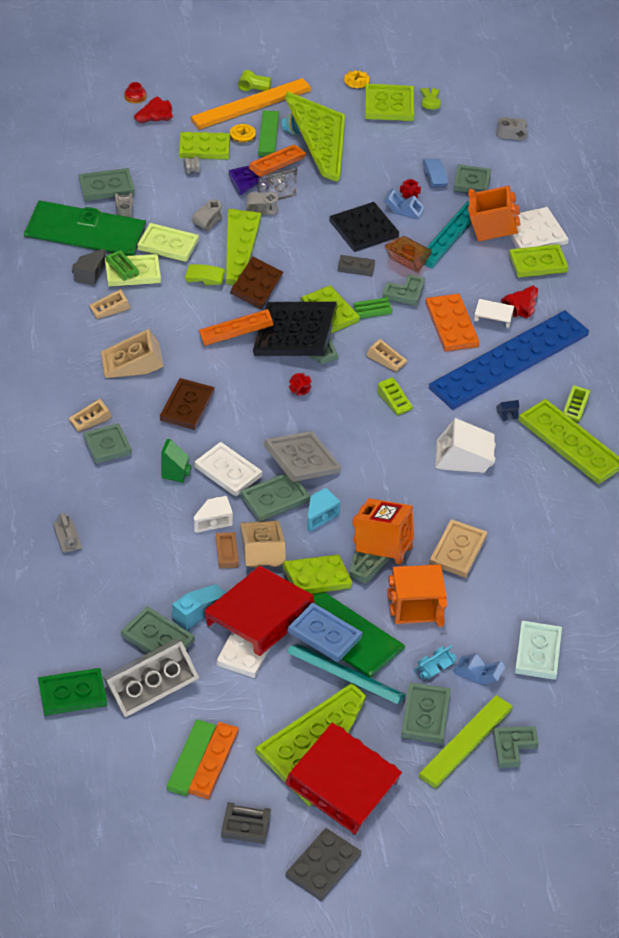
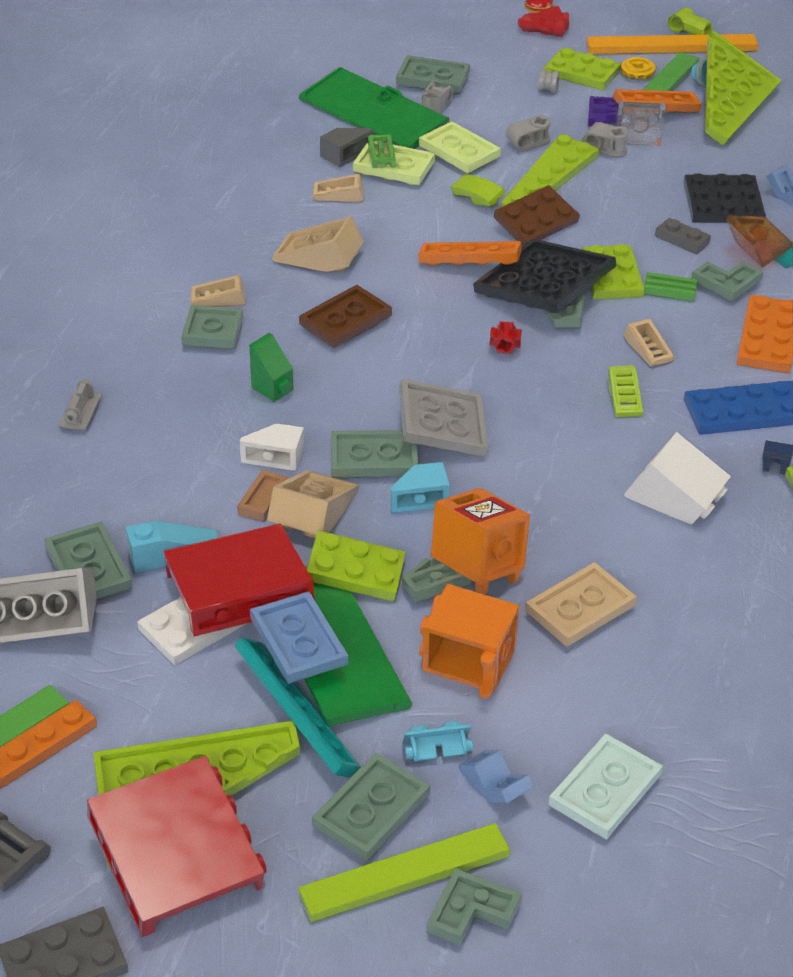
camera: 30 degrees right, 5 degrees down
(228, 469) = (338, 402): white plate -> none

